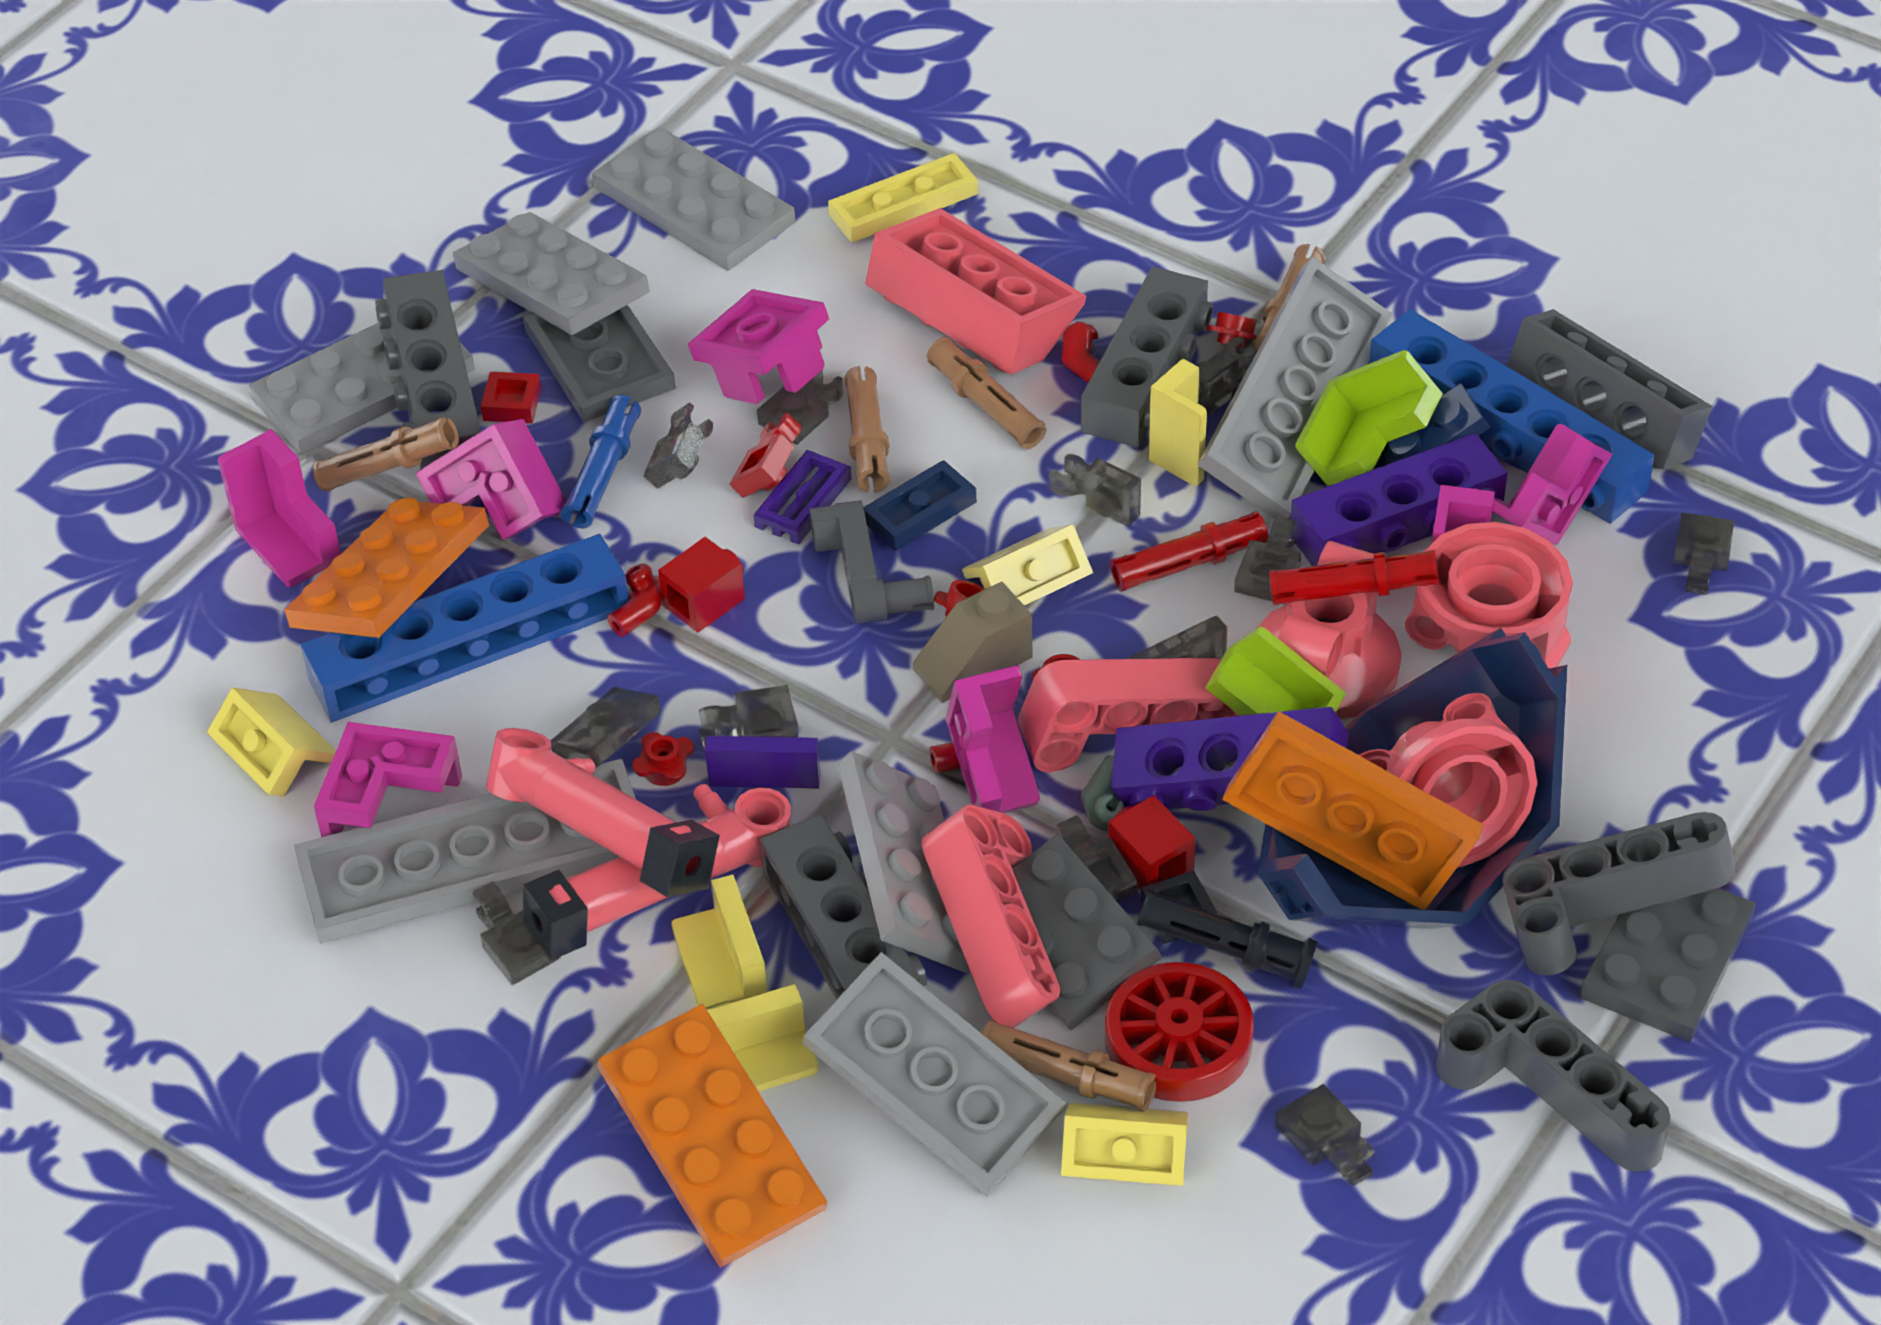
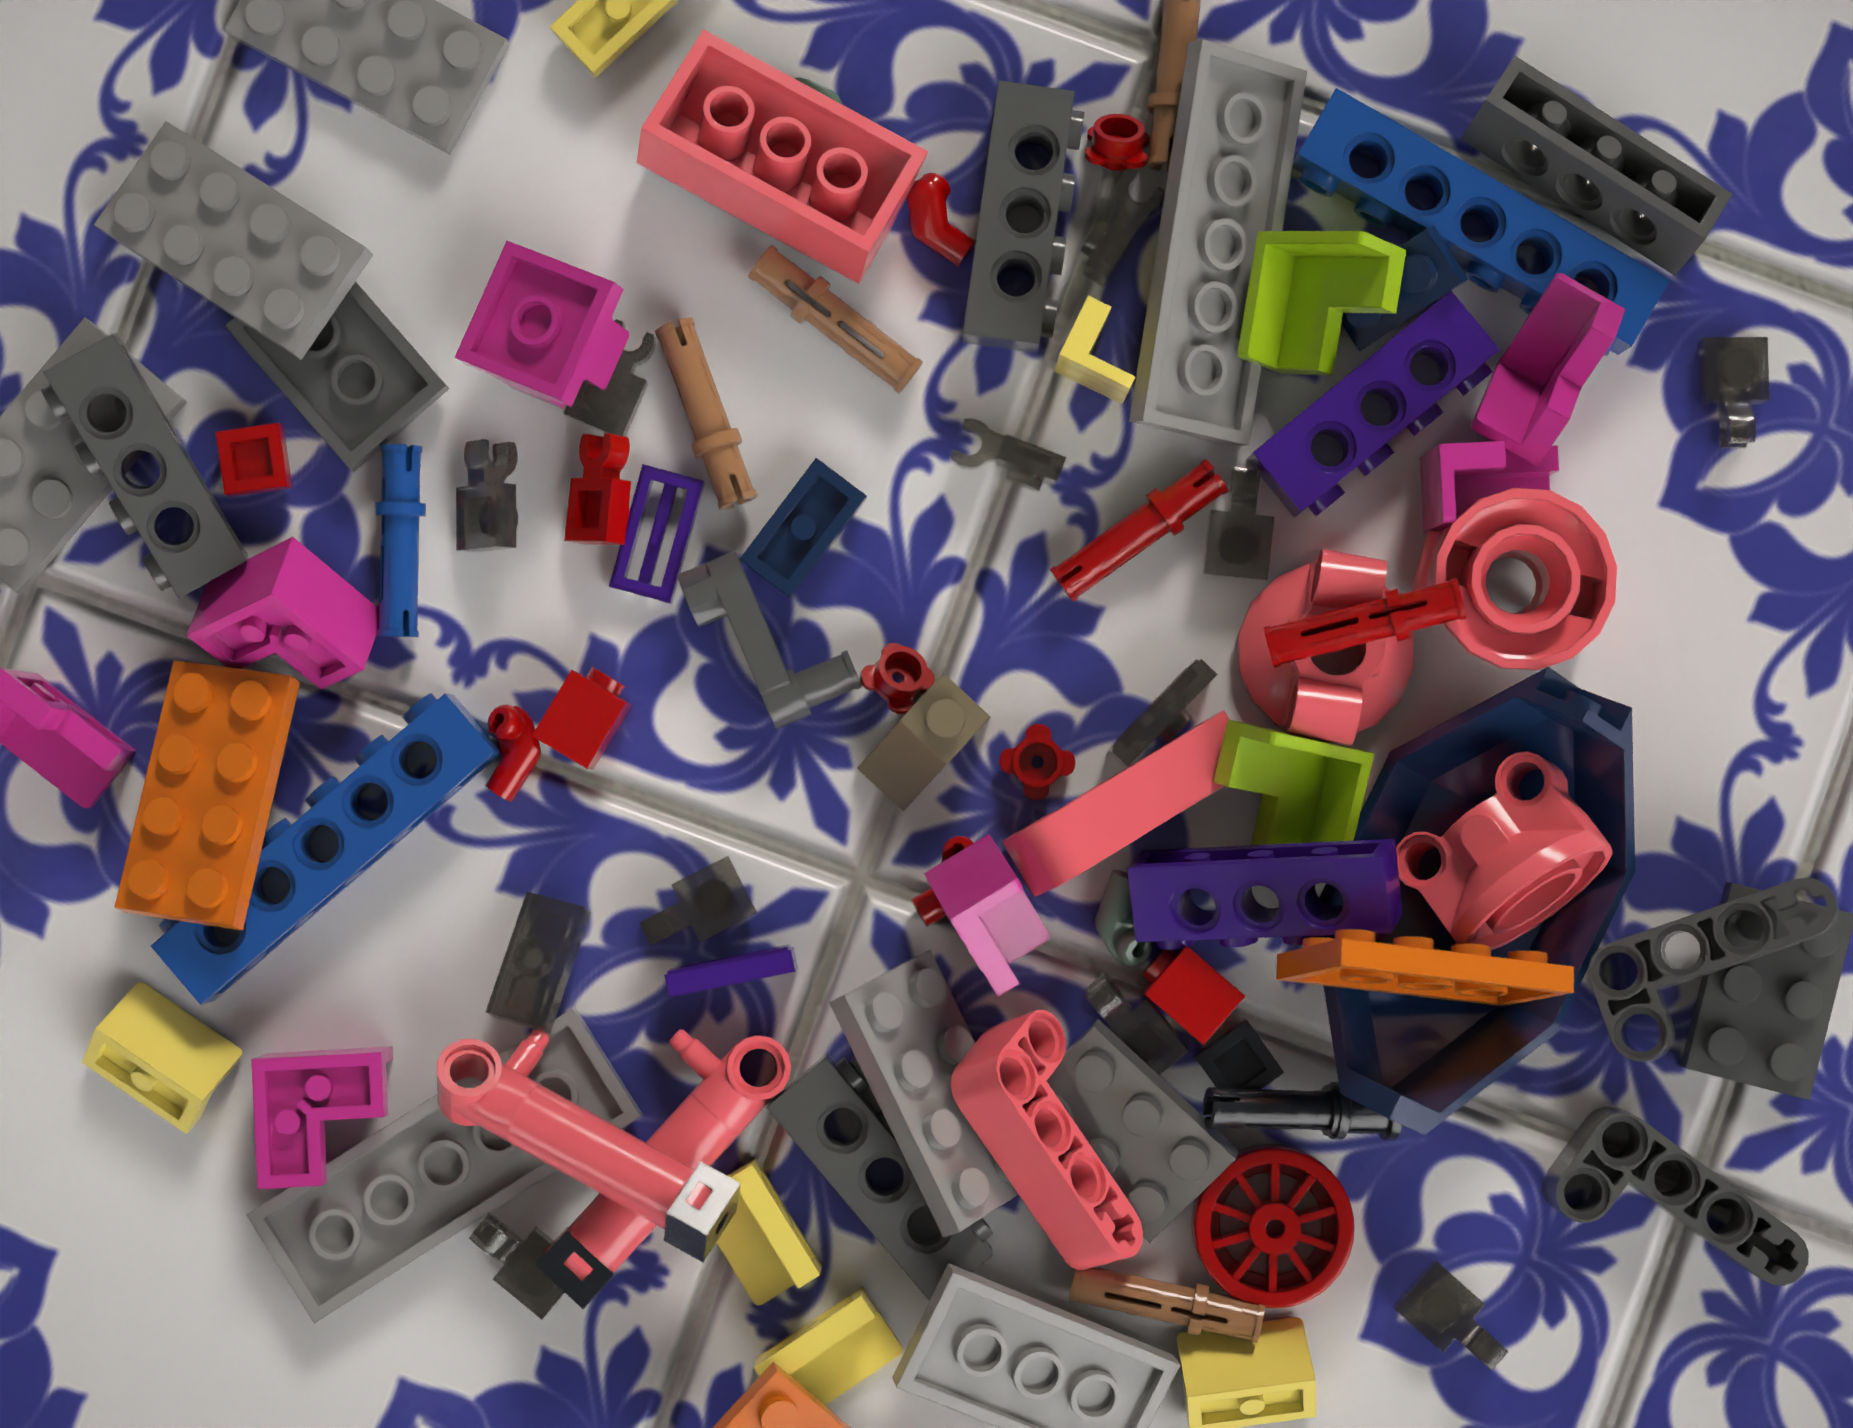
camera: 15 degrees left, 40 degrees up
(402, 448) = (161, 617): medium nougat pin -> none
(663, 758) = (601, 993): red plate -> none
(1035, 564) = (954, 596): light yellow panel -> none

